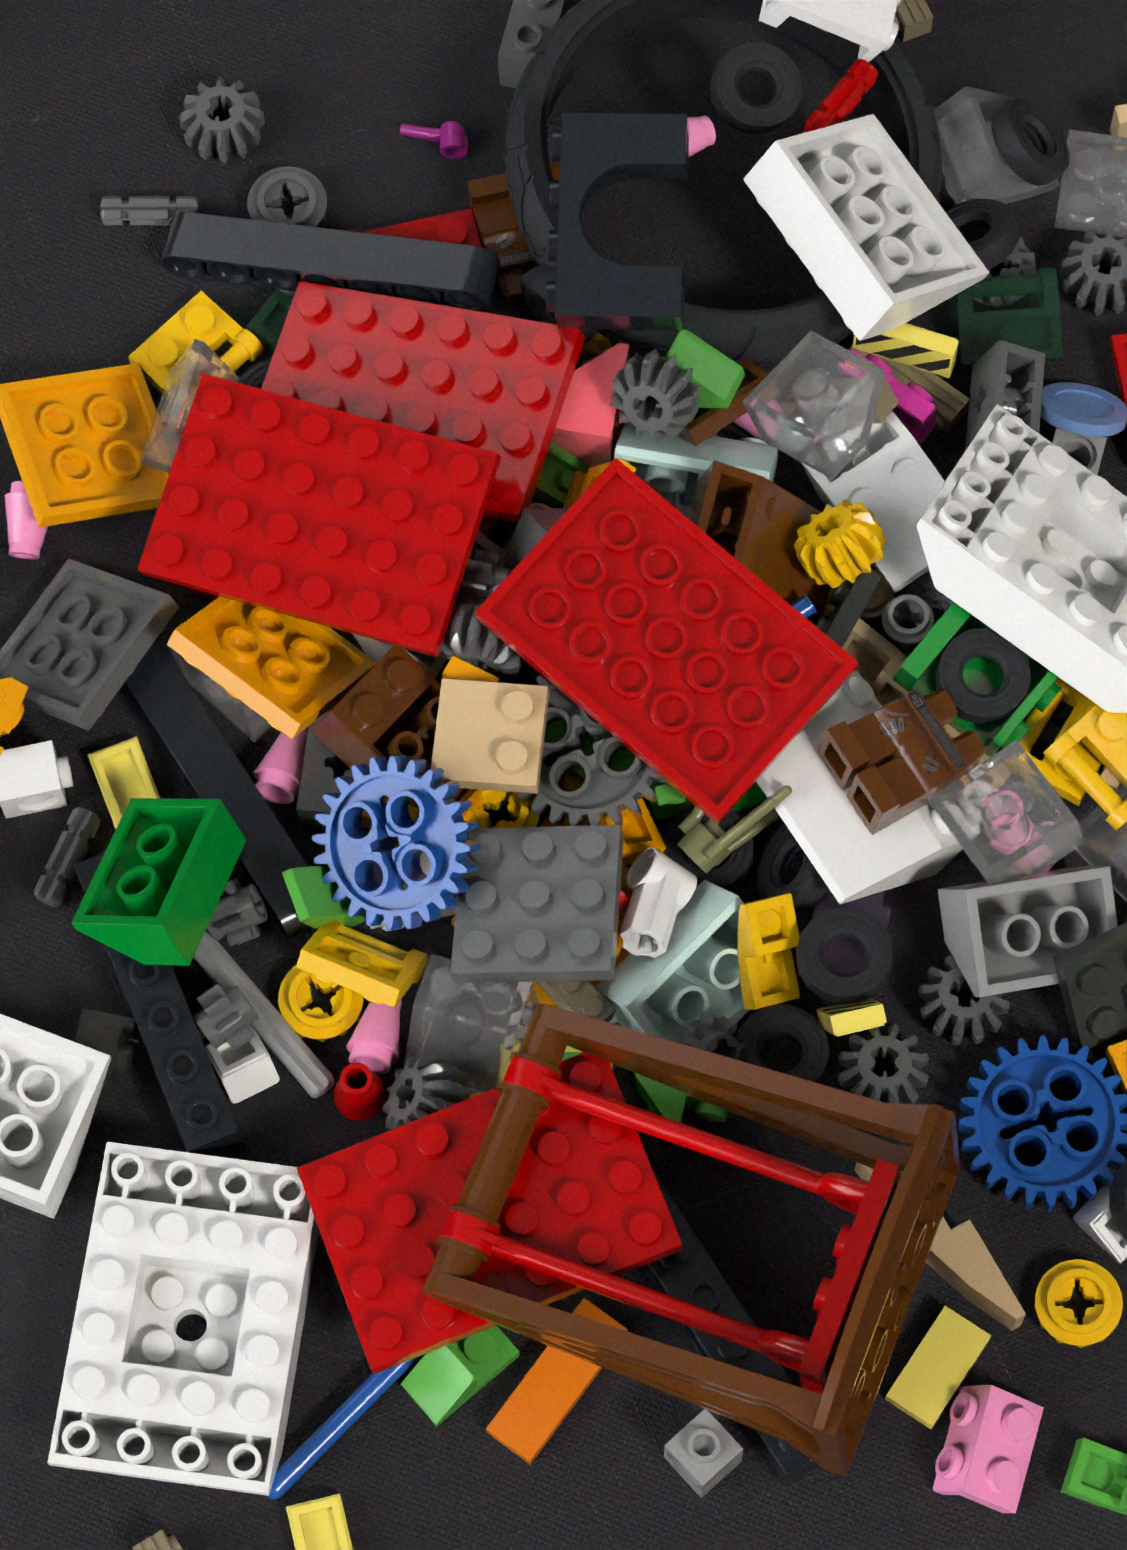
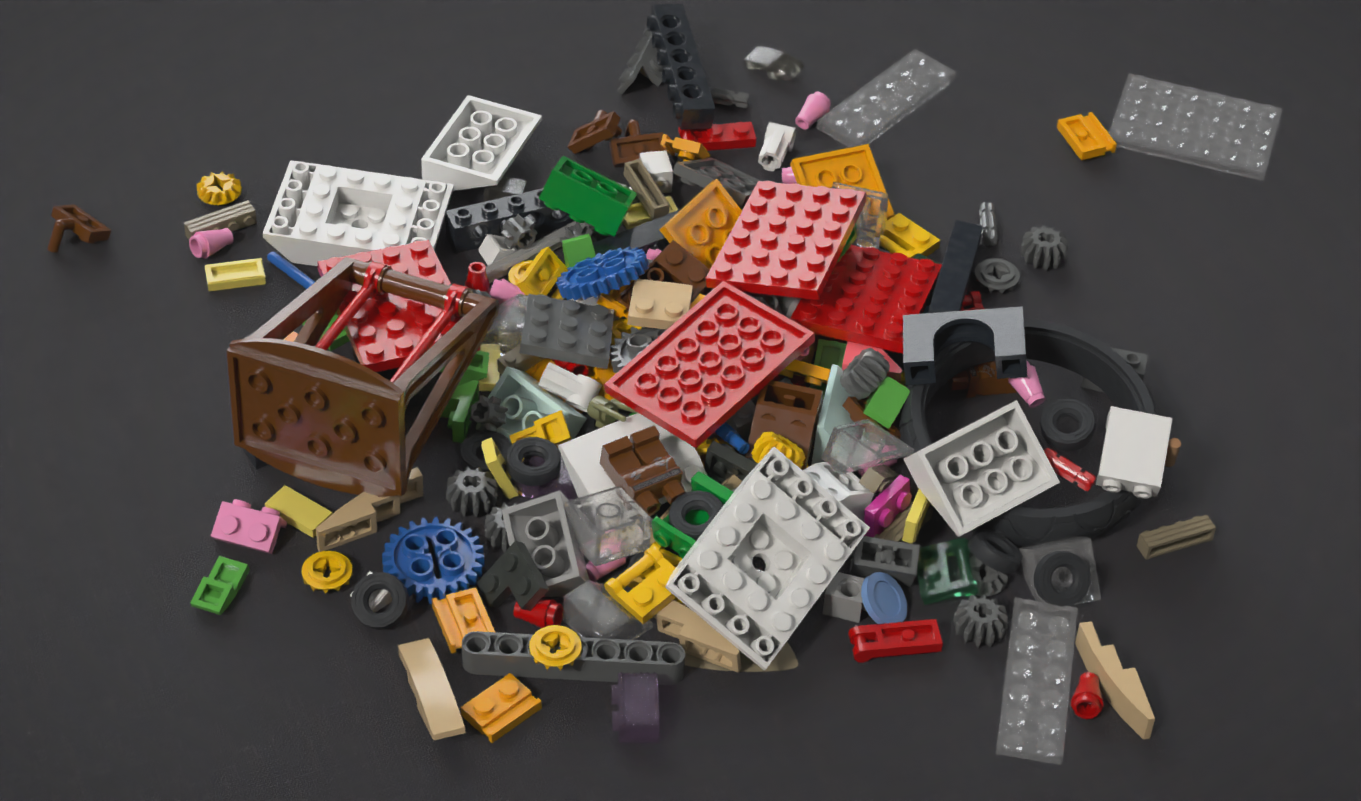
camera: 85 degrees right, 25 degrees down
(102, 788) = (646, 189): none -> dark tan piece

